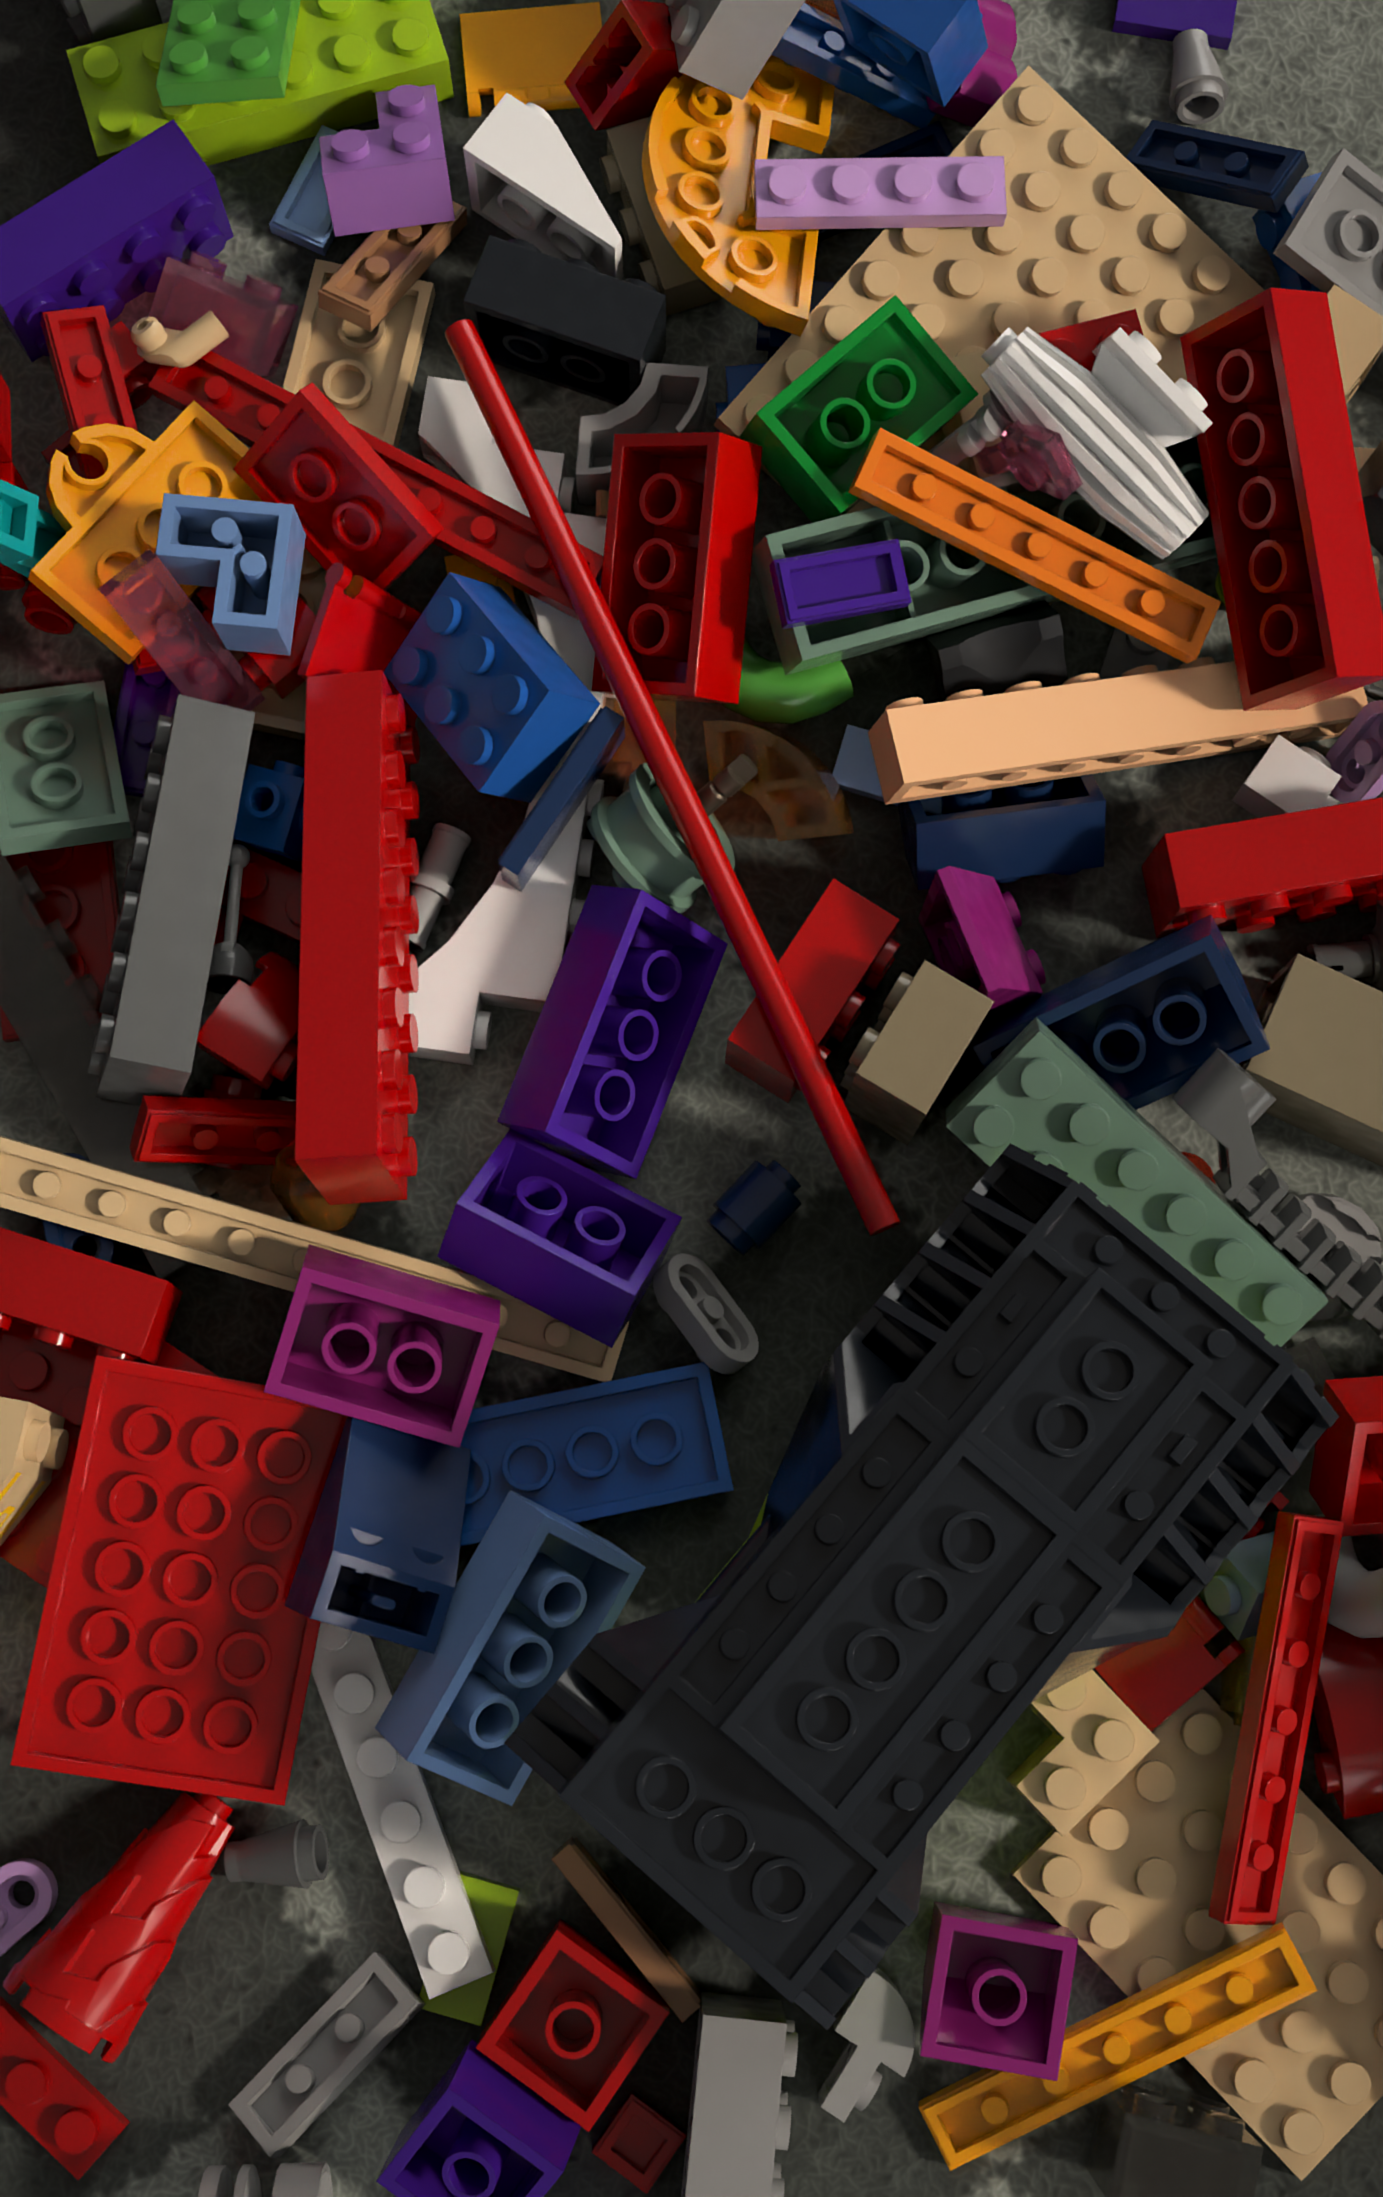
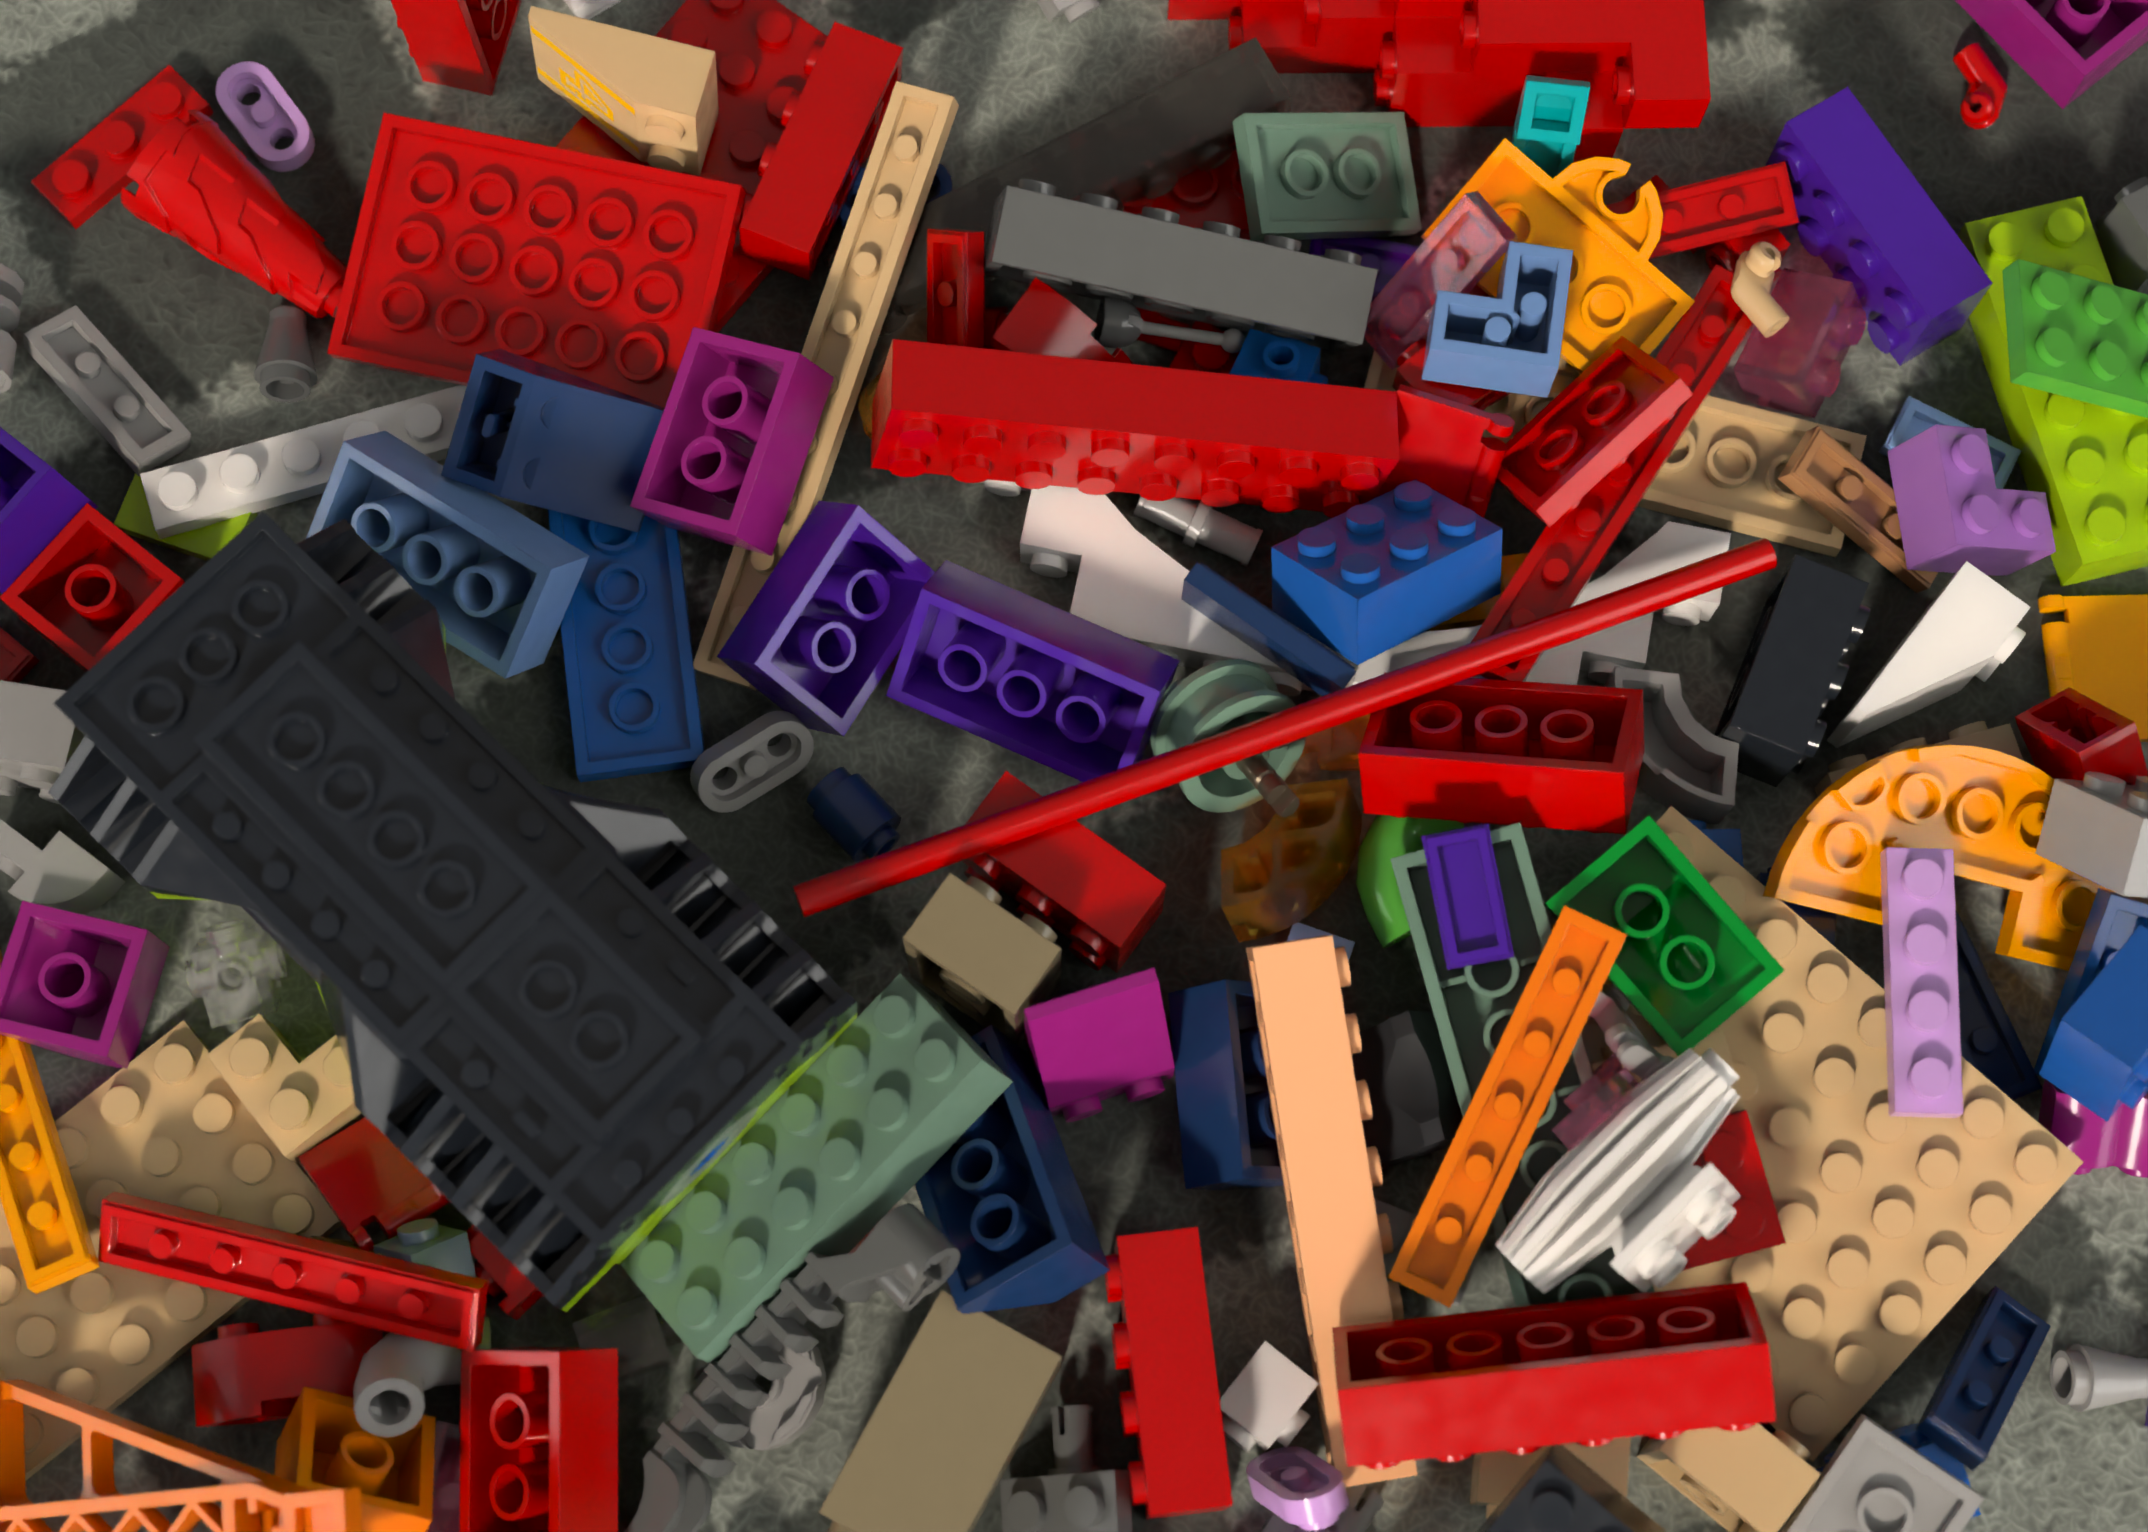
camera: 95 degrees right, 5 degrees down
(976, 1825) = (236, 972): none -> clear brick

